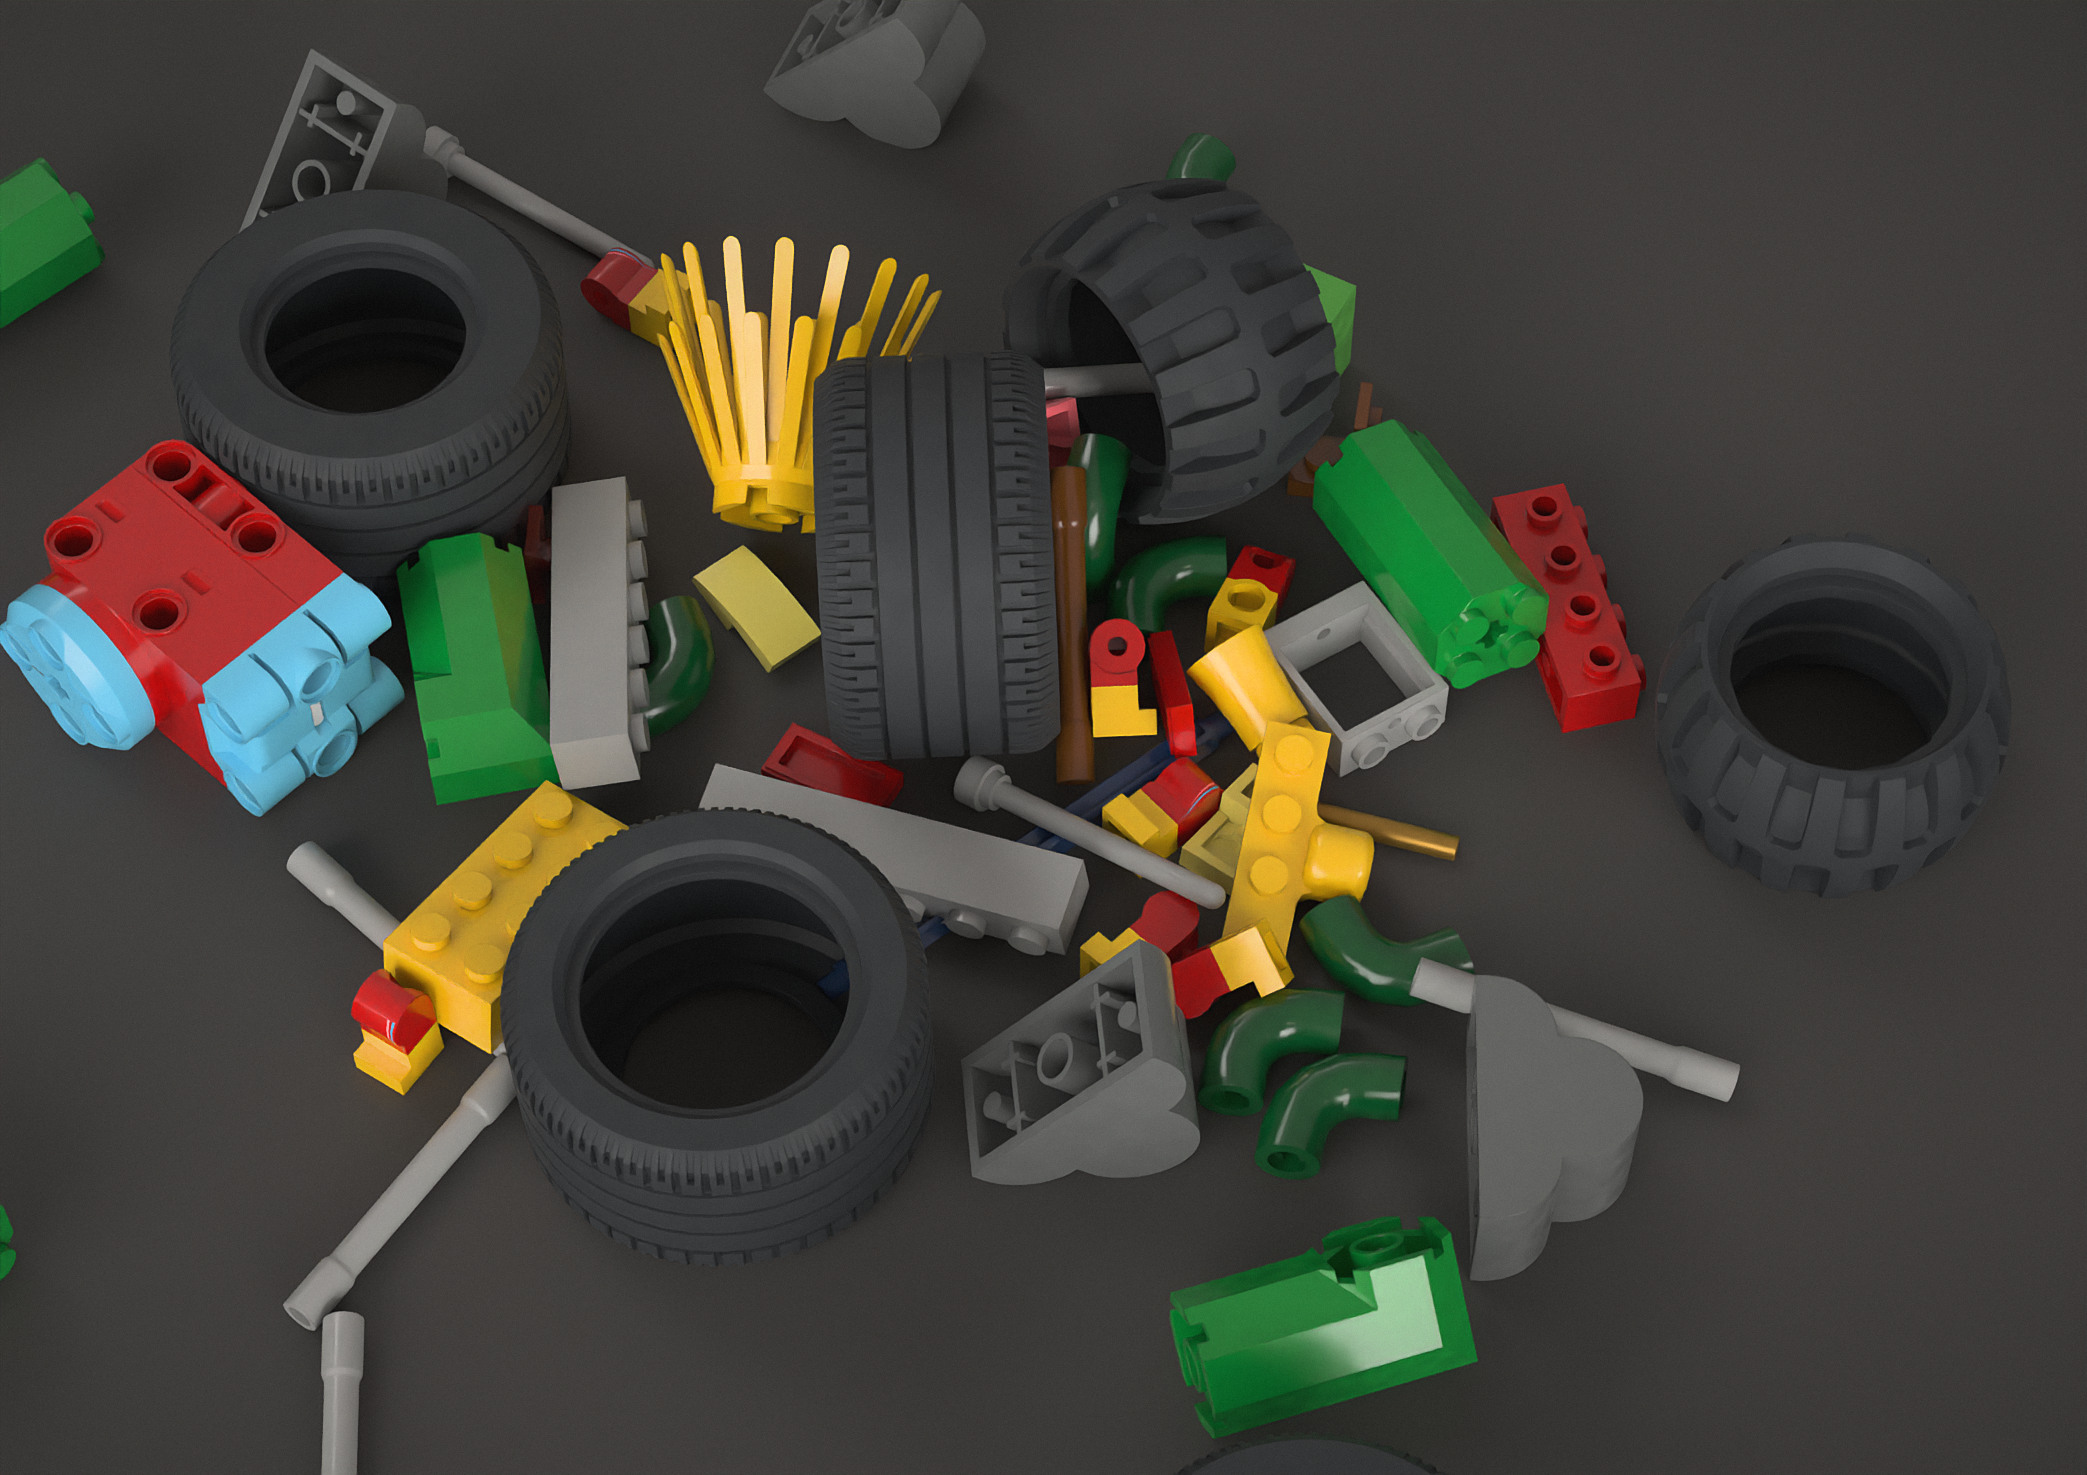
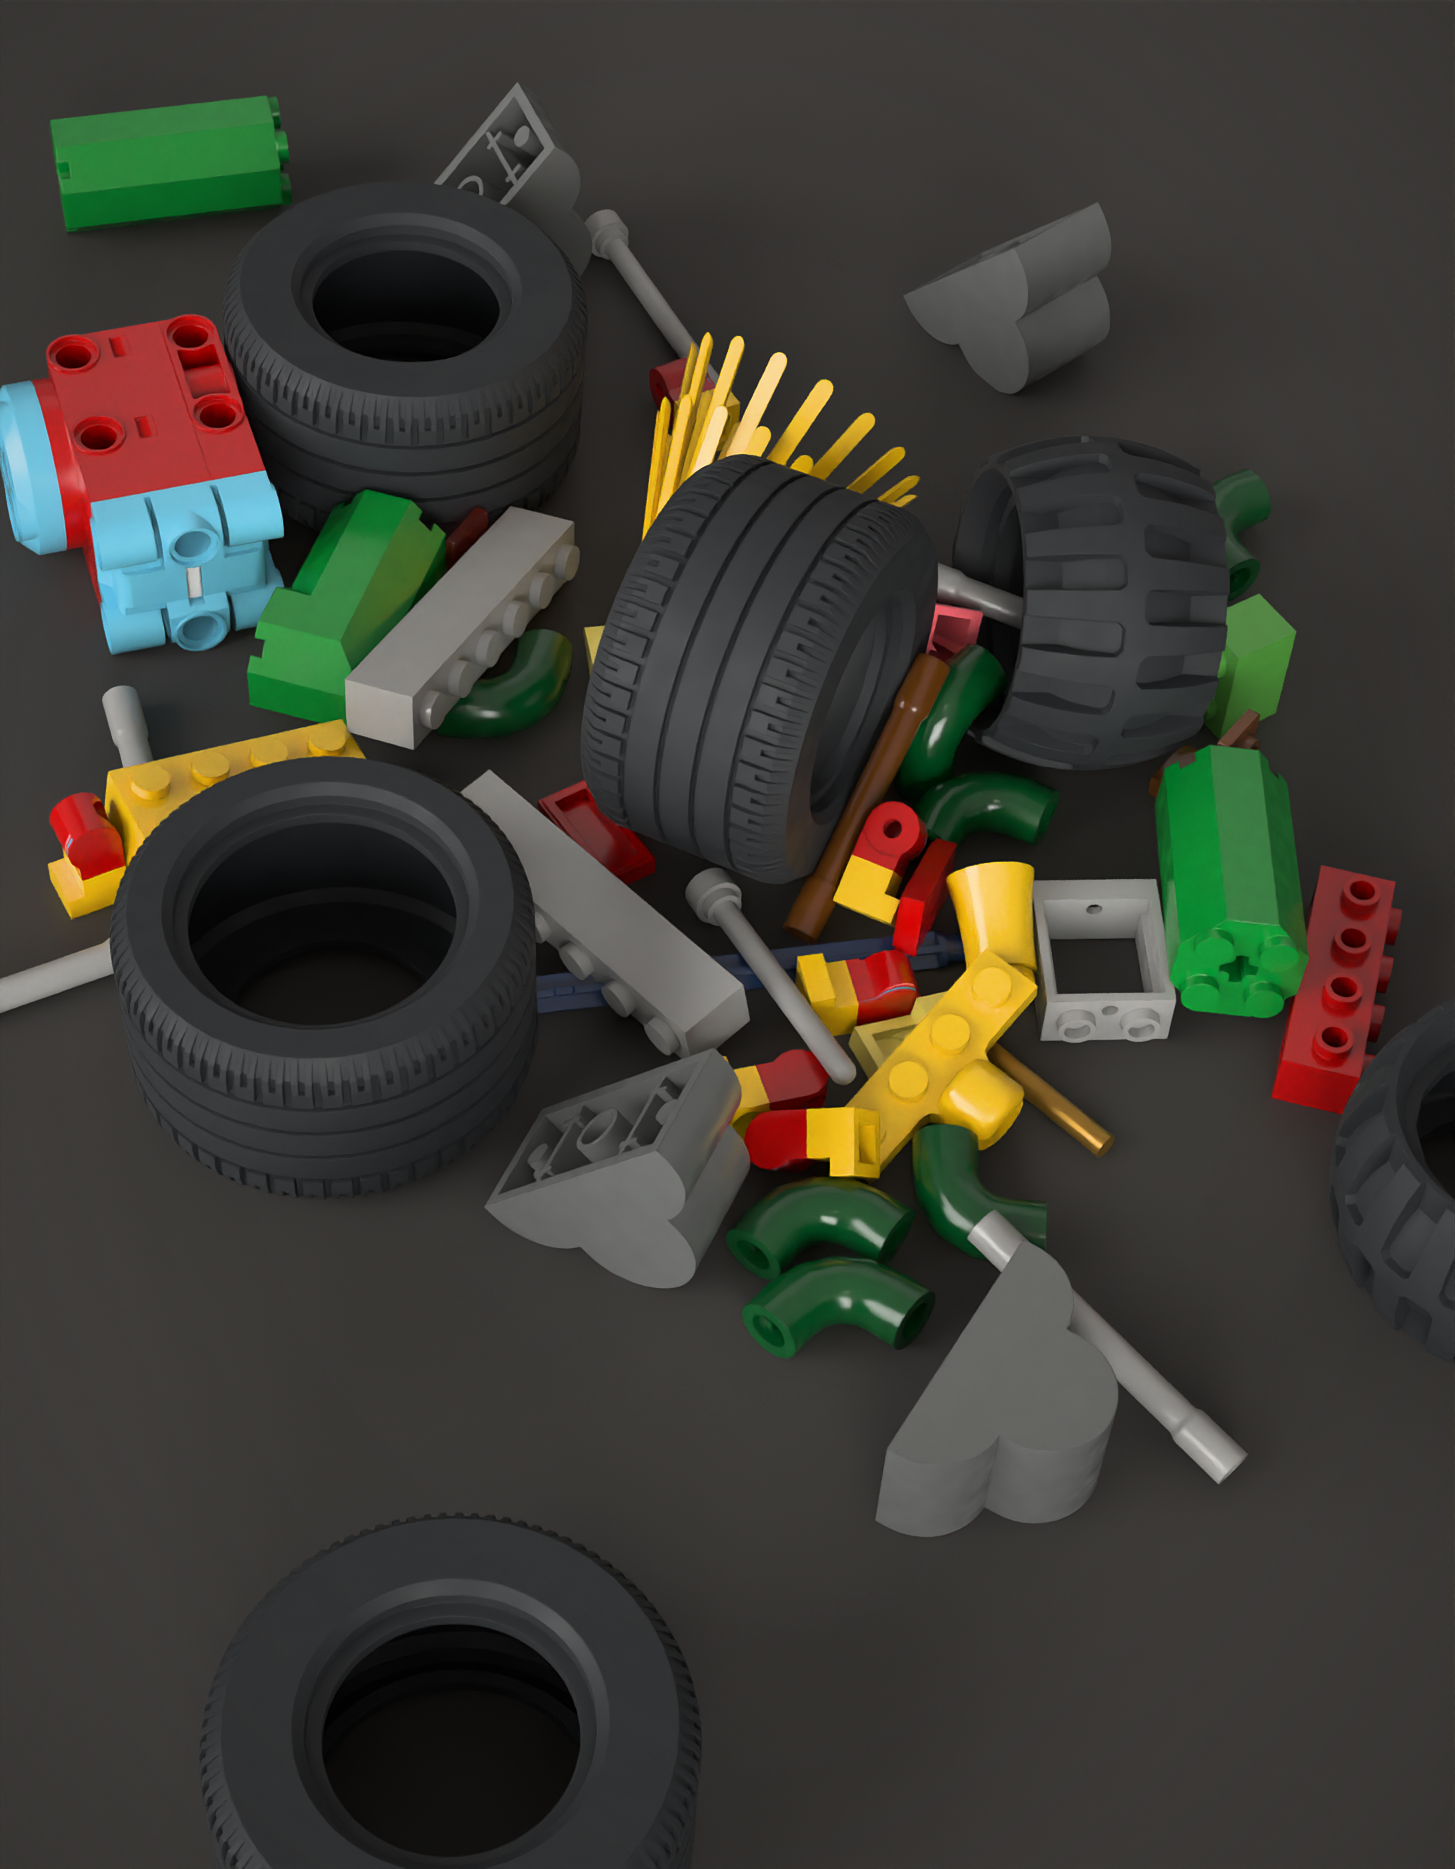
camera: 25 degrees right, 5 degrees down
(1249, 595) = (1058, 847): yellow leg -> none
(1323, 1326) = (697, 1486): green brick -> none

